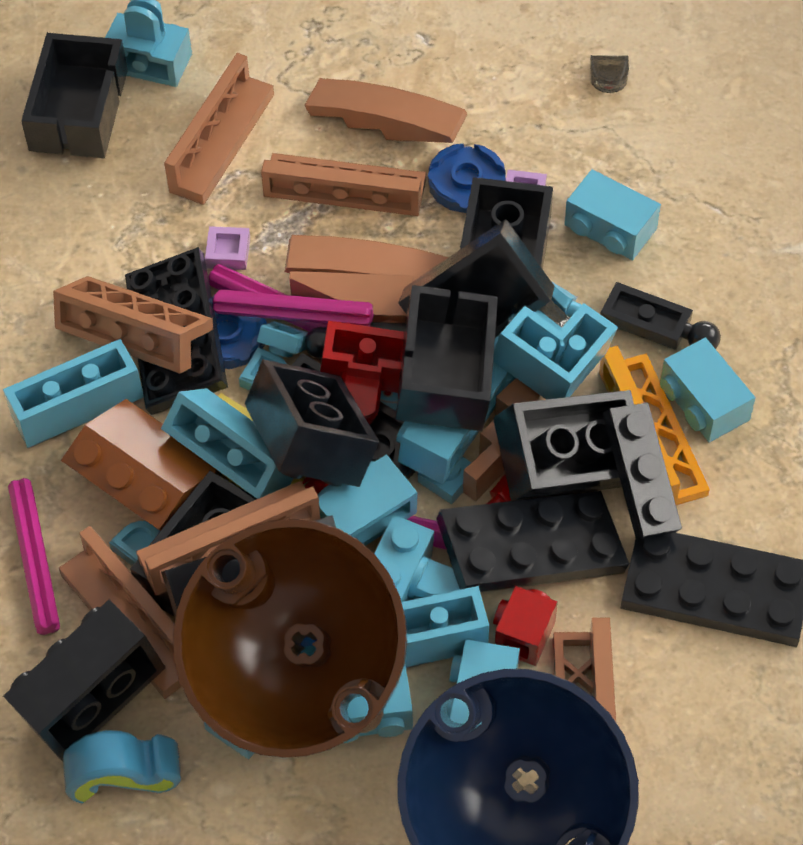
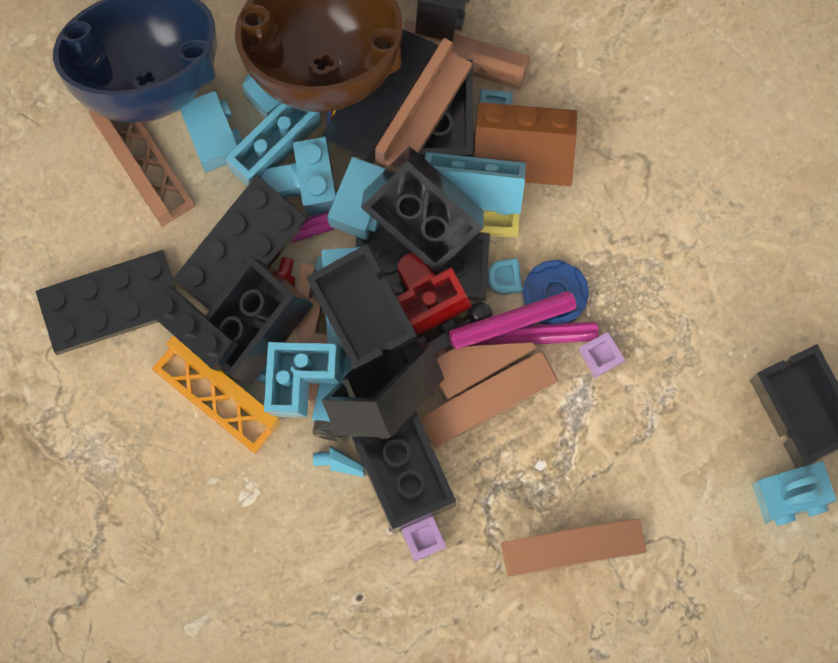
camera: 145 degrees right, 20 degrees up
(33, 557) = (554, 57): dark pink axle -> none
(73, 392) = (611, 168): medium azure brick -> none
(144, 324) = (615, 230): nougat fence -> none
(183, 283) = (586, 265): black tile -> none
(217, 132) = (682, 452): nougat fence -> none
(282, 339) = (506, 299): medium azure plate -> none
(343, 184) = (556, 456): nougat fence -> none
(453, 172) = (476, 531): blue tile -> none
(525, 622) = (213, 192): red brick -> none
(612, 214) = (345, 554): medium azure piece -> none
(655, 318) = (261, 483): black plate -> none
(706, 390) = (194, 441): medium azure piece -> none

